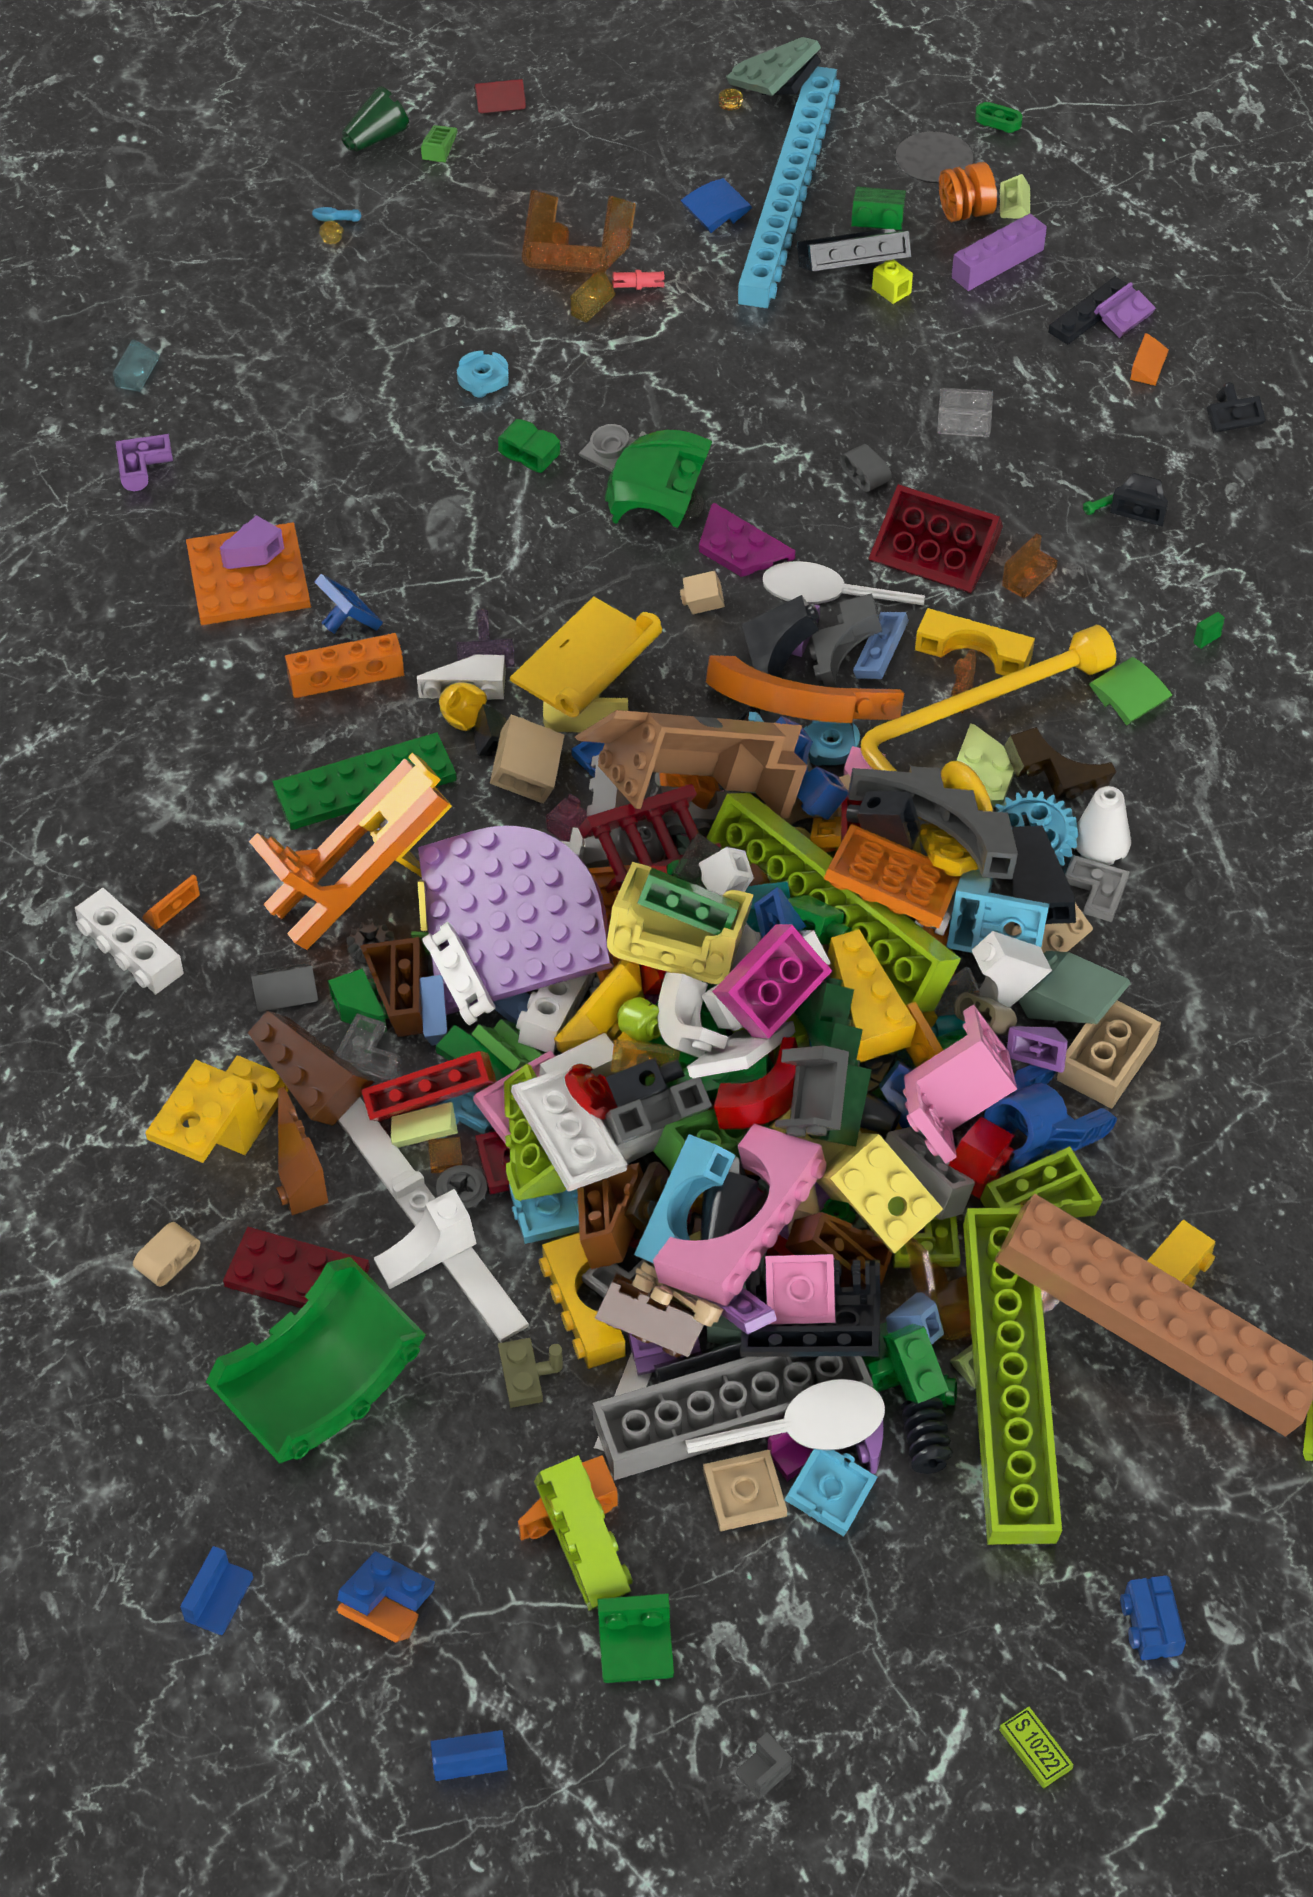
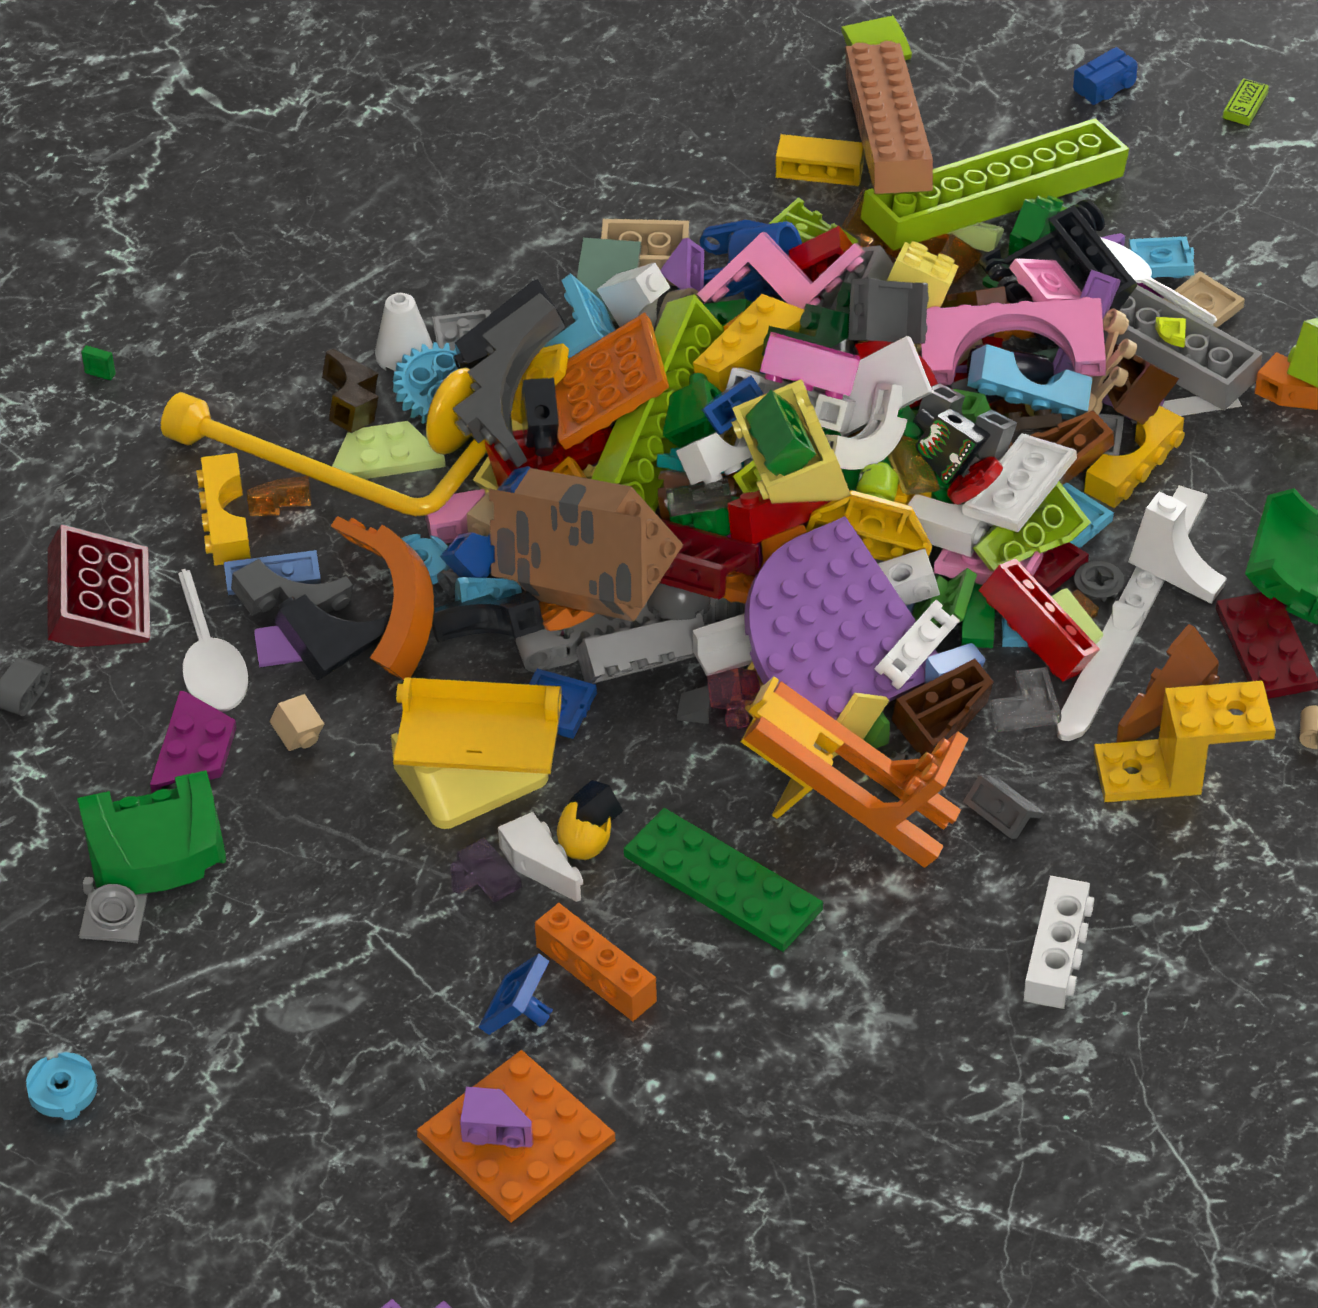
camera: 120 degrees left, 5 degrees down
(172, 903) = (985, 940): orange slope -> none
(309, 1069) = (1085, 717): reddish brown wedge -> none
(356, 995) = (983, 736): green slope -> none
(522, 1372) = (1219, 470): olive plate -> none
(527, 759) = (615, 748): tan brick -> none
(528, 445) = (160, 977): green brick -> none
(565, 817) = (664, 690): clear pink brick -> none
(693, 1396) = (1171, 330): none -> neon yellow tile
(918, 1311) = (986, 241): medium blue slope -> none
(1028, 568) = (92, 514): clear orange panel -> none
(1130, 690) = (214, 386): bright green slope -> none

